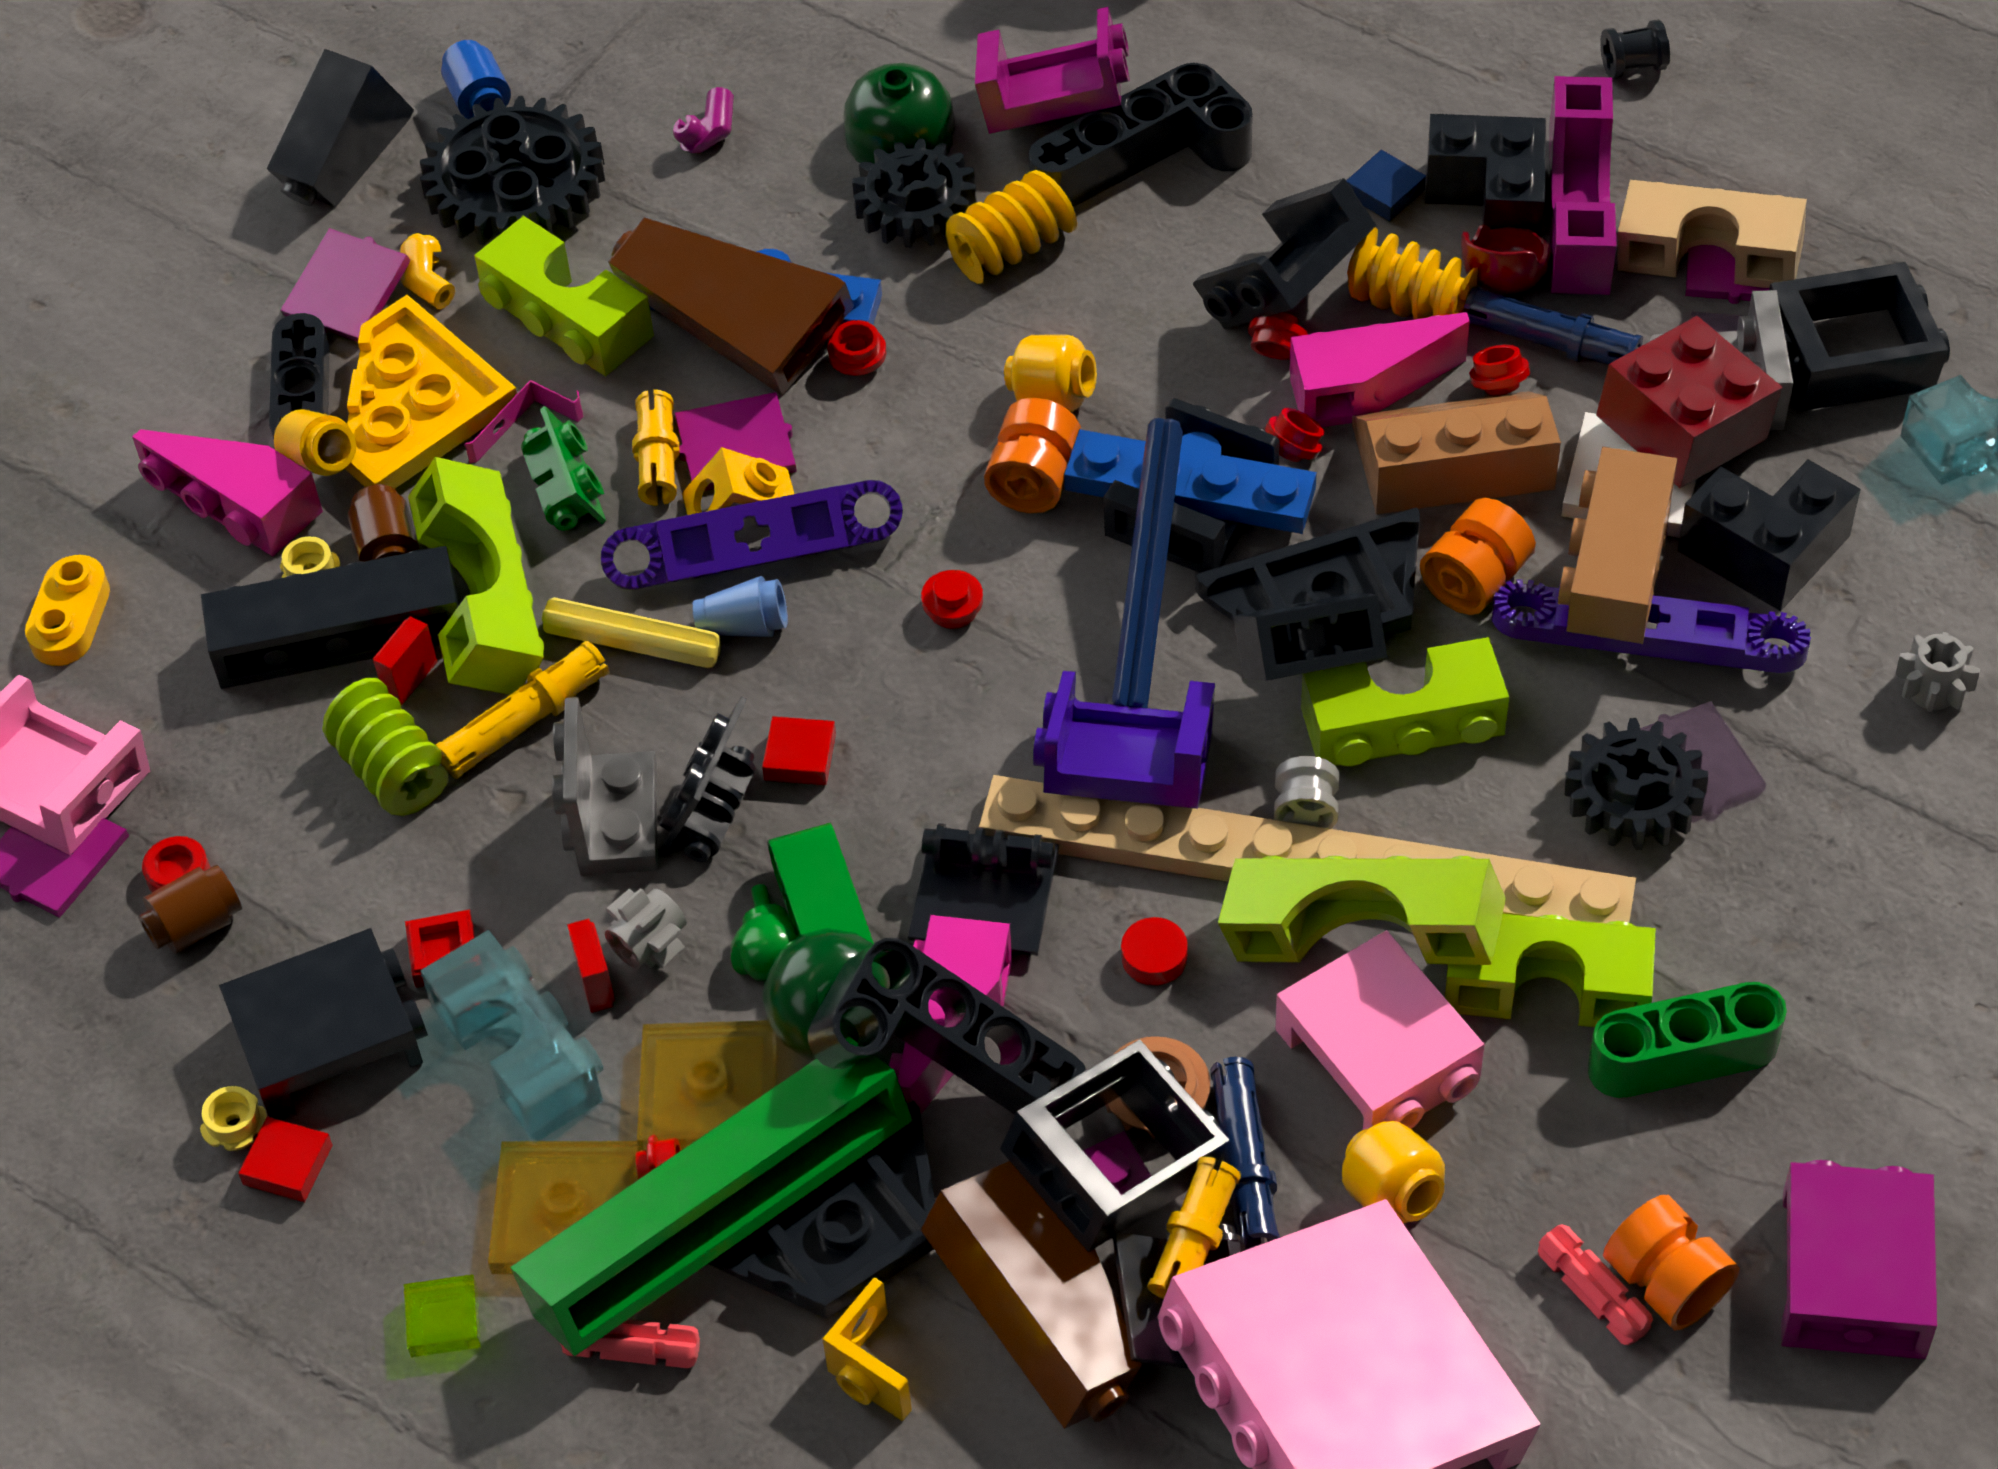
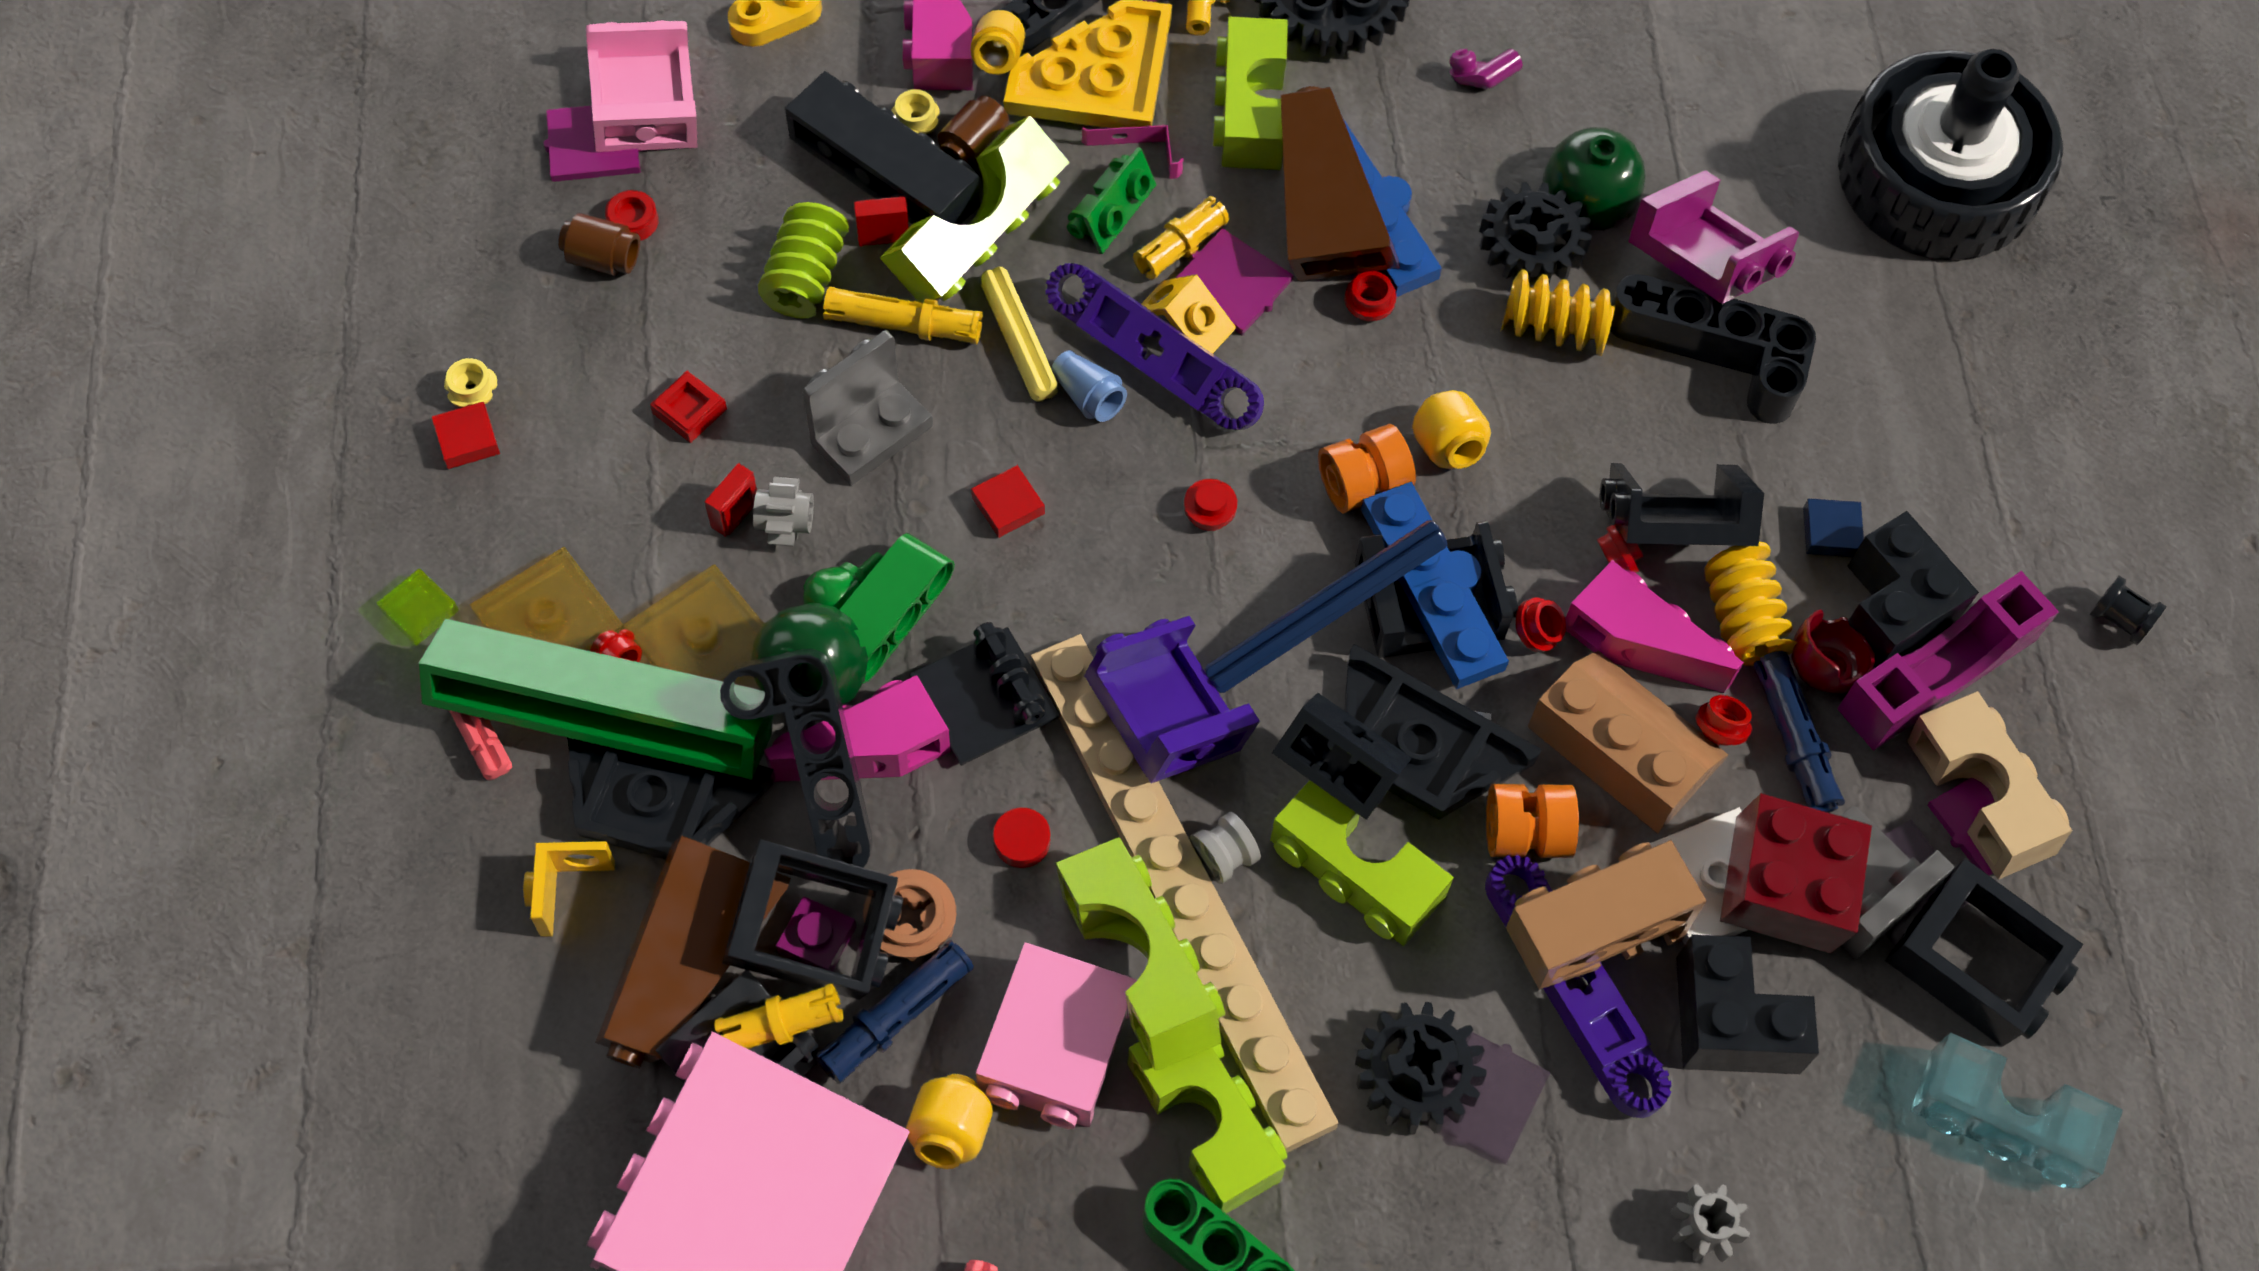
camera: 45 degrees right, 10 degrees up
(322, 1017) = (571, 378): black panel -> none
(489, 993) = (636, 533): clear light blue arch -> none
(710, 792) = (943, 451): black hinge -> none

